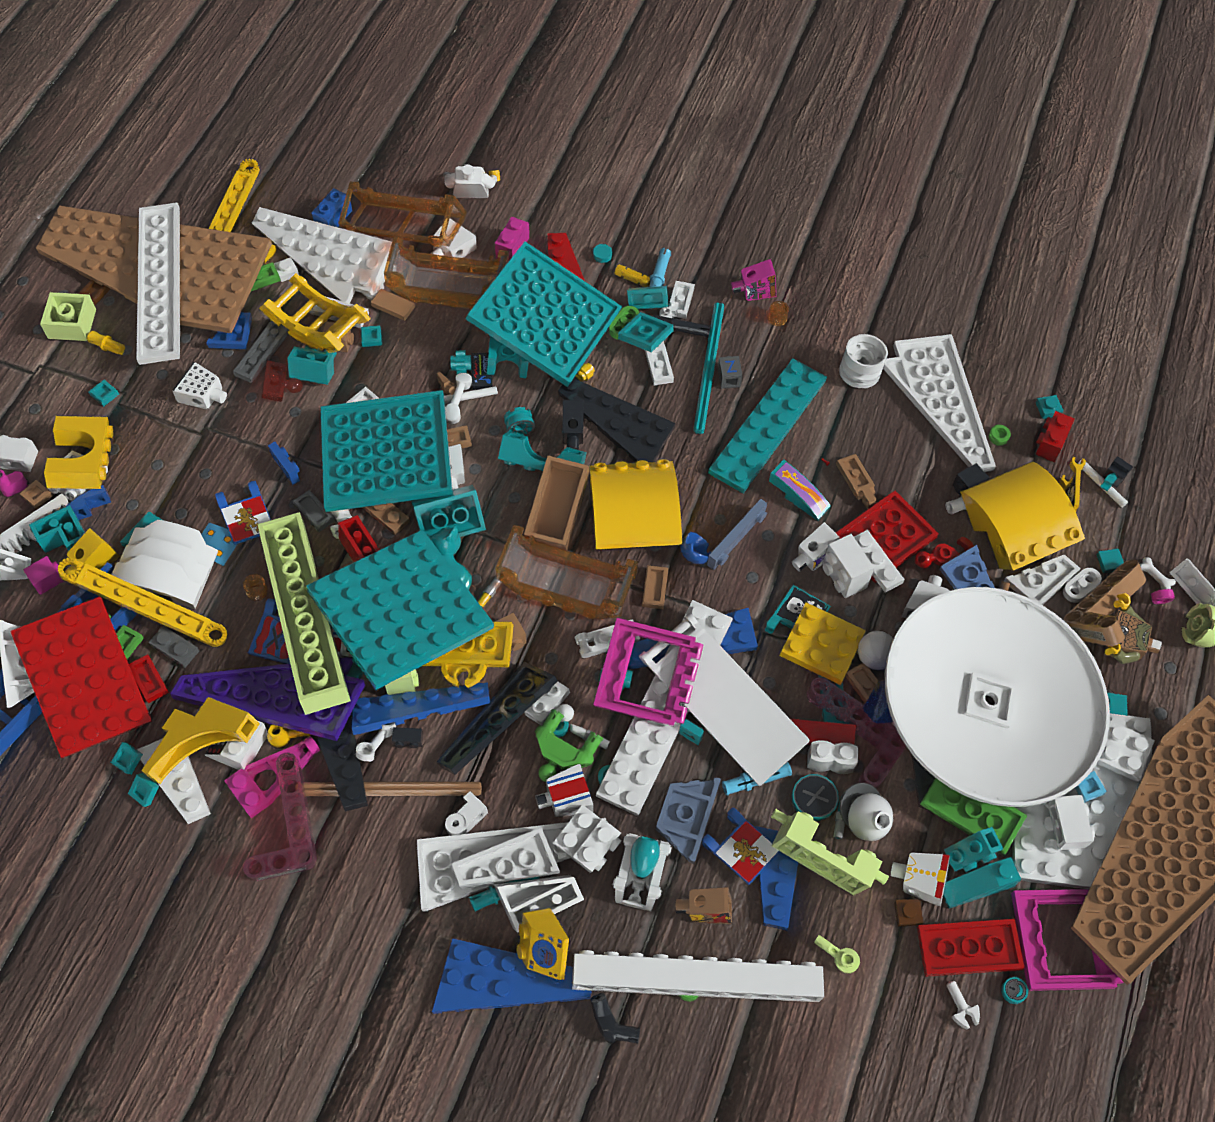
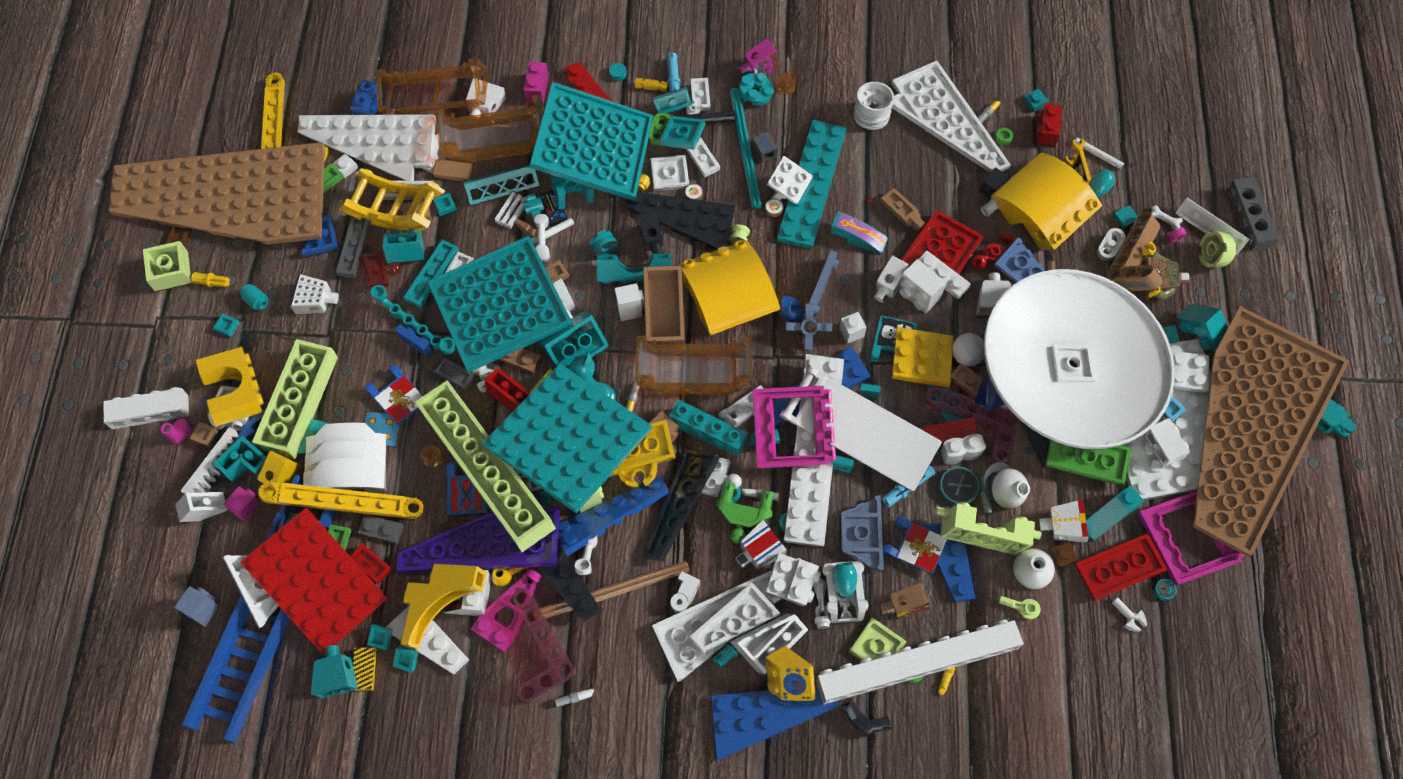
camera: 15 degrees left, 5 degrees up
(62, 781) = (333, 674): none -> teal torso
(97, 787) = (364, 668): none -> tile
(139, 485) = (295, 399): none -> yellowish green brick
(141, 373) = (254, 297): none -> teal brick
(158, 284) = (239, 212): white plate -> none
(304, 890) = (574, 697): none -> light grey piece
(312, 475) = (446, 344): none -> teal bar
(337, 394) = (433, 268): none -> teal plate
(407, 737) = (610, 543): black piece -> none
(434, 360) = (518, 198): none -> white tile
(436, 323) = (498, 177): none -> teal fence
(471, 181) = (479, 39): white torso -> none
(521, 488) = (629, 302): none -> white brick
(558, 647) = (709, 428): none -> teal brick
(615, 859) = (820, 589): none -> white piece
(618, 370) = (669, 173): none -> white tile
(636, 397) = (694, 192): none -> tile
(655, 587) = (768, 352): medium nougat tile -> none
(658, 937) = (875, 641): none -> yellowish green tile
(669, 452) = (739, 232): none -> yellowish green wheel
(717, 438) = (774, 207): none -> tile
(717, 575) = (808, 341): none -> sand blue pin
(722, 1009) = (945, 680): none -> yellow piece
(741, 413) = (789, 181): none -> white bracket
(746, 302) = (758, 81): none -> teal plate
(750, 662) = (870, 391): none -> teal tile
(756, 588) = (852, 327): none -> white brick
(860, 923) = (1029, 575): none -> white piece
(973, 849) = (1096, 491): teal brick -> none
(991, 403) = (988, 111): none -> light grey piece
(1045, 580) = (1079, 250): white wing -> none
(1094, 515) = (1102, 182): none -> teal animal
(1116, 473) = (1107, 142): black piece -> none
(1162, 702) = (1205, 322): none -> teal brick

